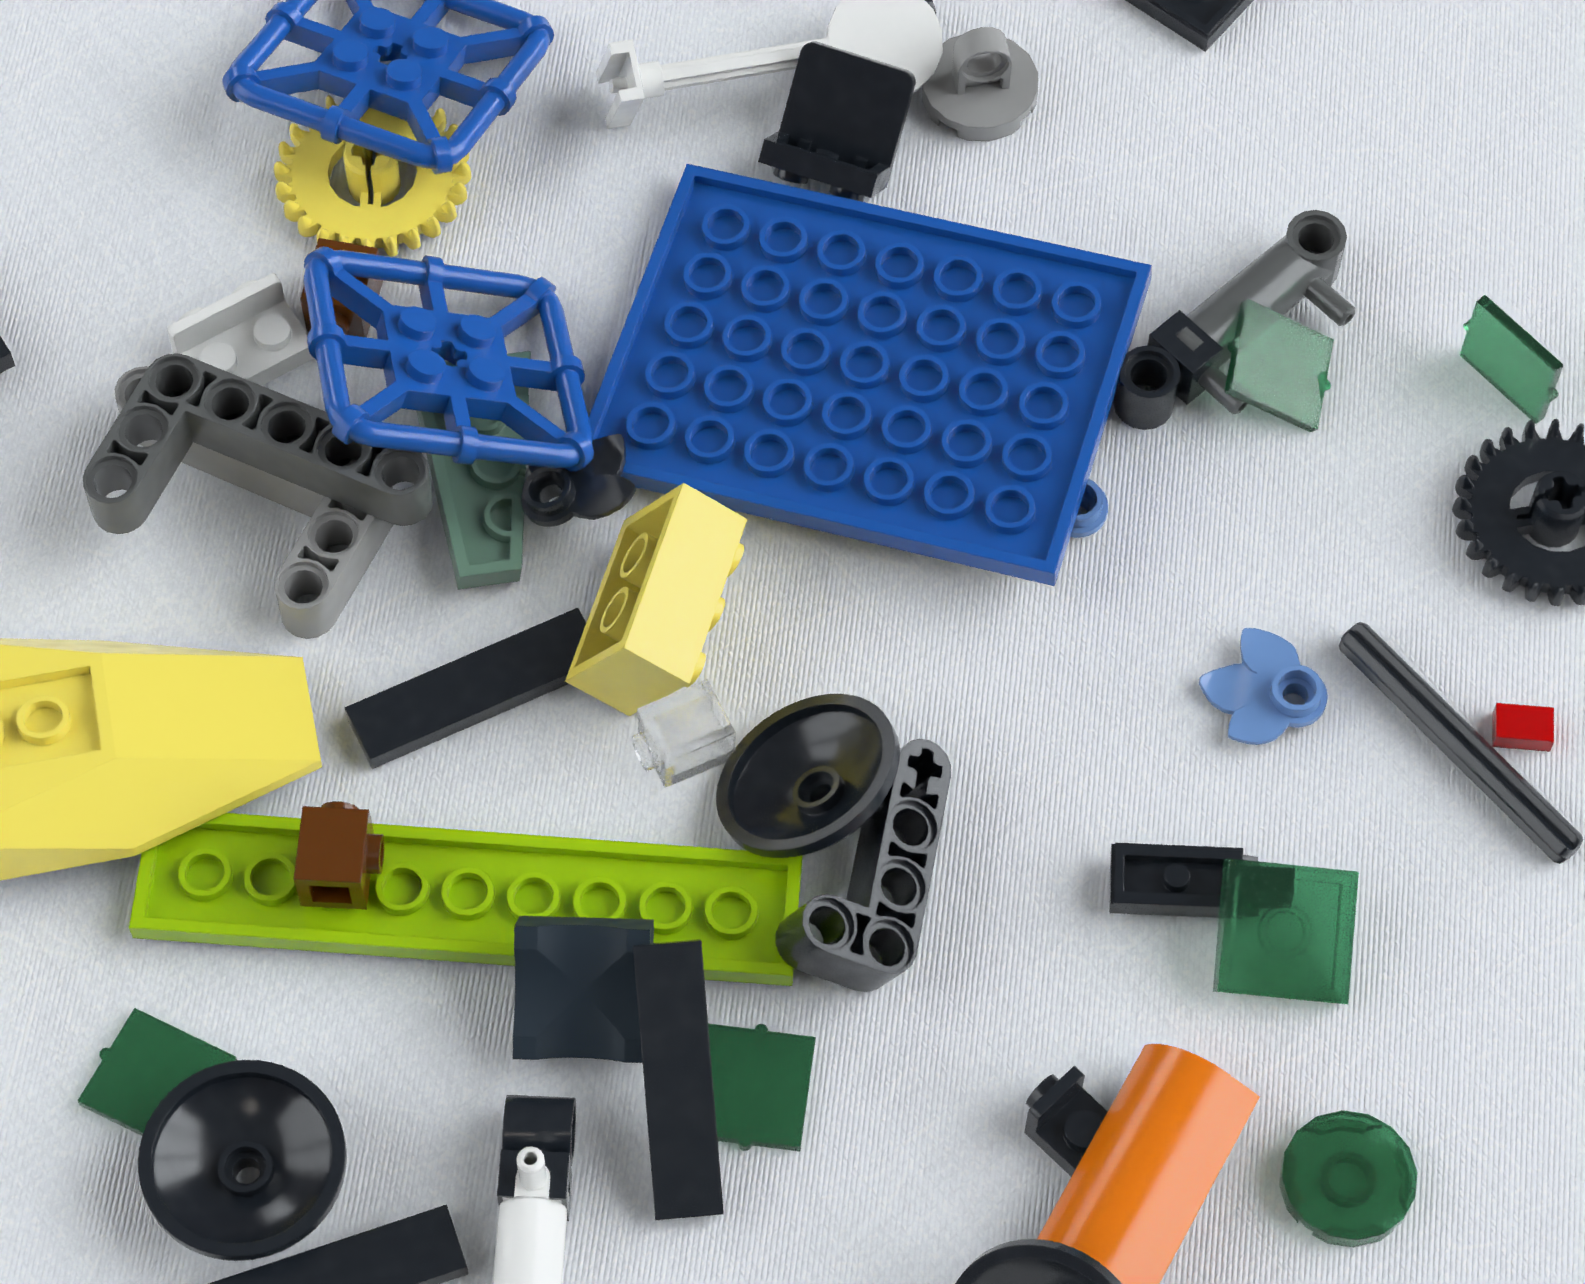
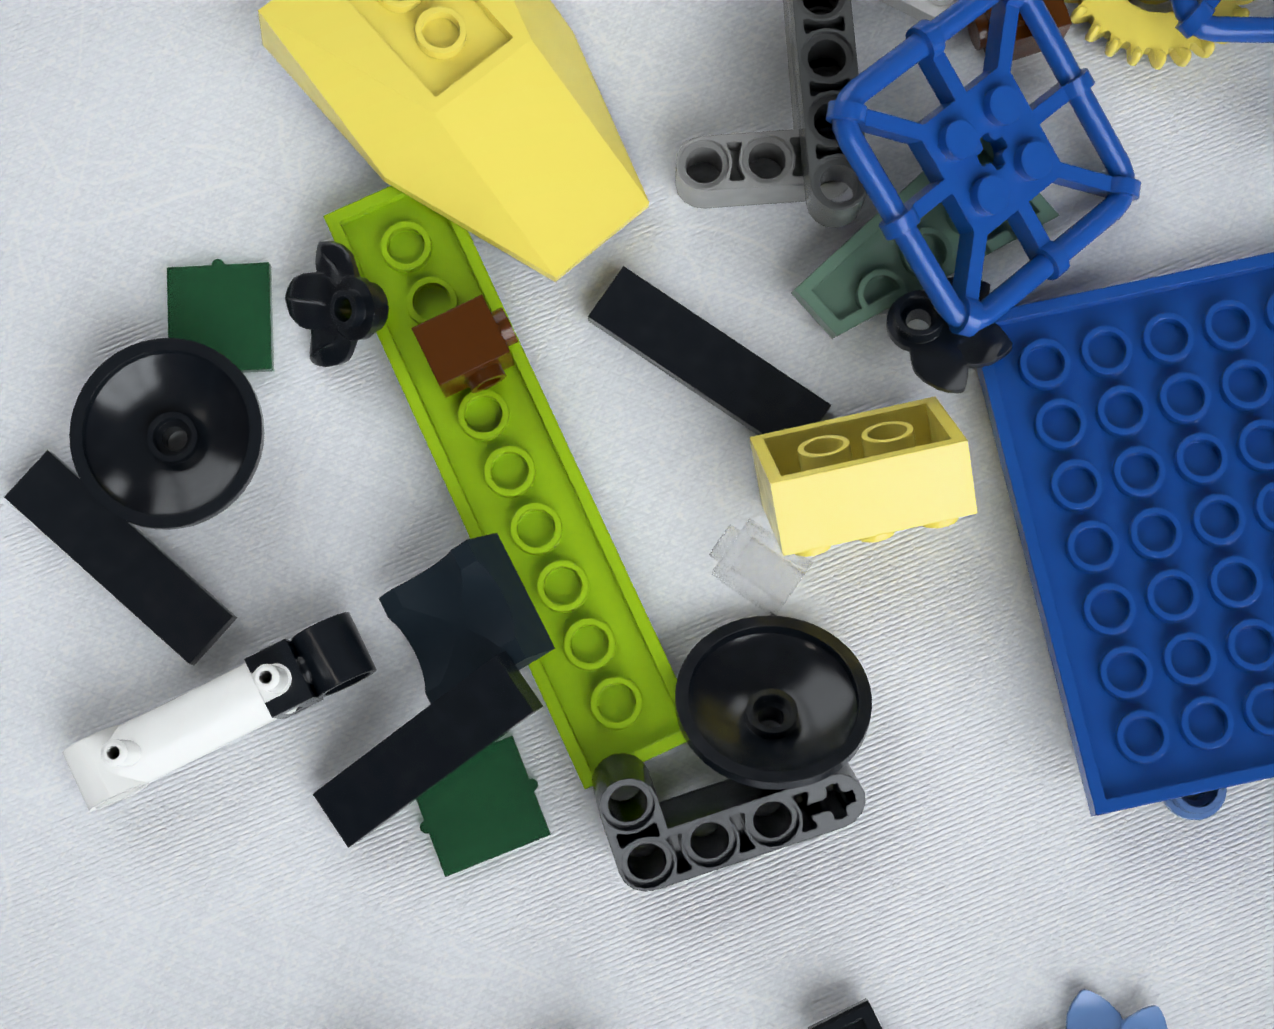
camera: 65 degrees right, 20 degrees up
(212, 966) = (336, 305): none -> black plate

